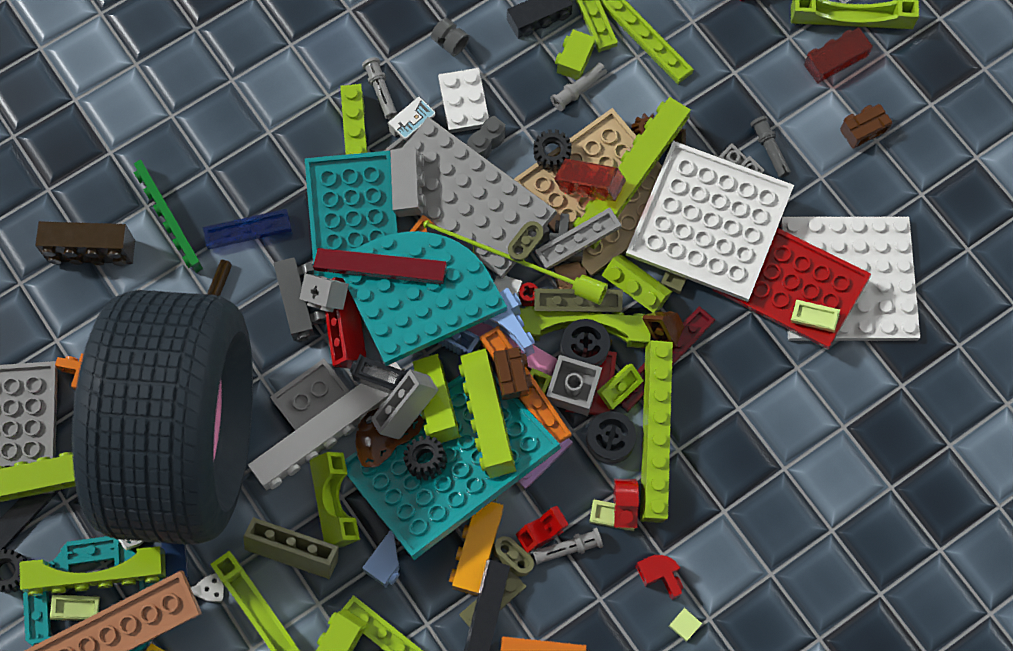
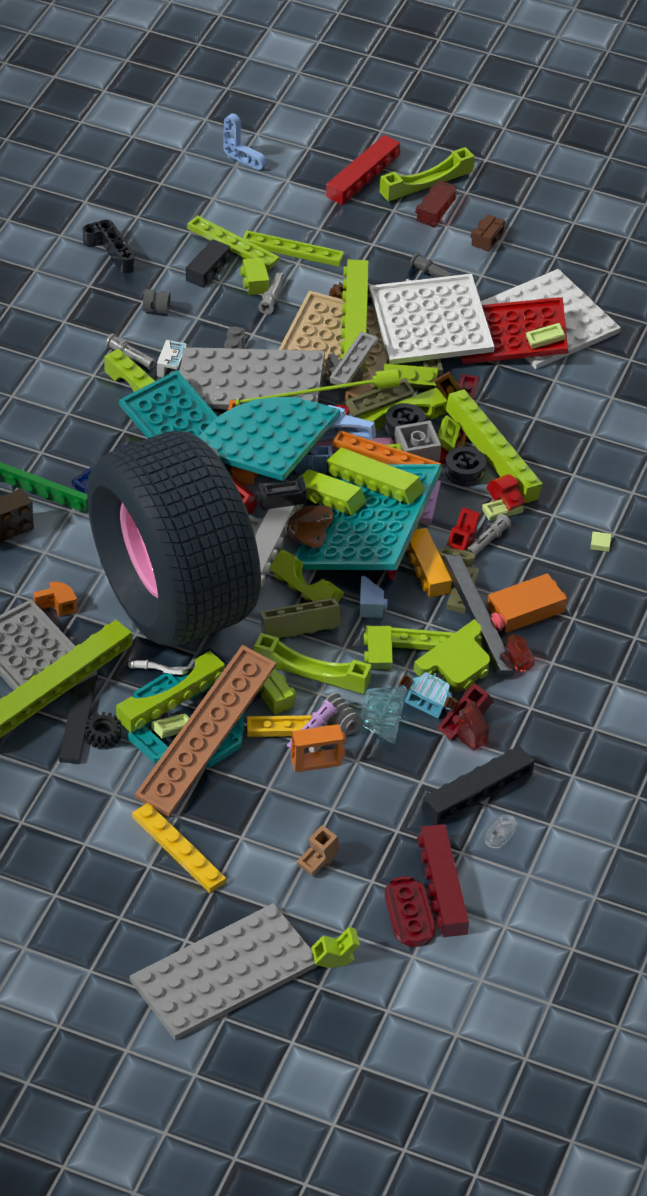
camera: 35 degrees left, 25 degrees down
(203, 630) = (277, 693): none -> lime brick
(380, 266) = (241, 425): dark red tile -> none
(404, 404) = (314, 495): light grey brick -> none
(407, 182) = (205, 383): light grey brick -> none
(426, 469) = (353, 519): black tyre -> none
(463, 100) = (195, 333): white plate -> none
(511, 373) = (374, 444): reddish brown brick -> none
(524, 241) = (320, 373): olive plate -> none
(552, 138) = (288, 335): black tyre -> none
(590, 180) = (332, 326): clear red brick -> none
(661, 568) = (562, 517): red brick -> none

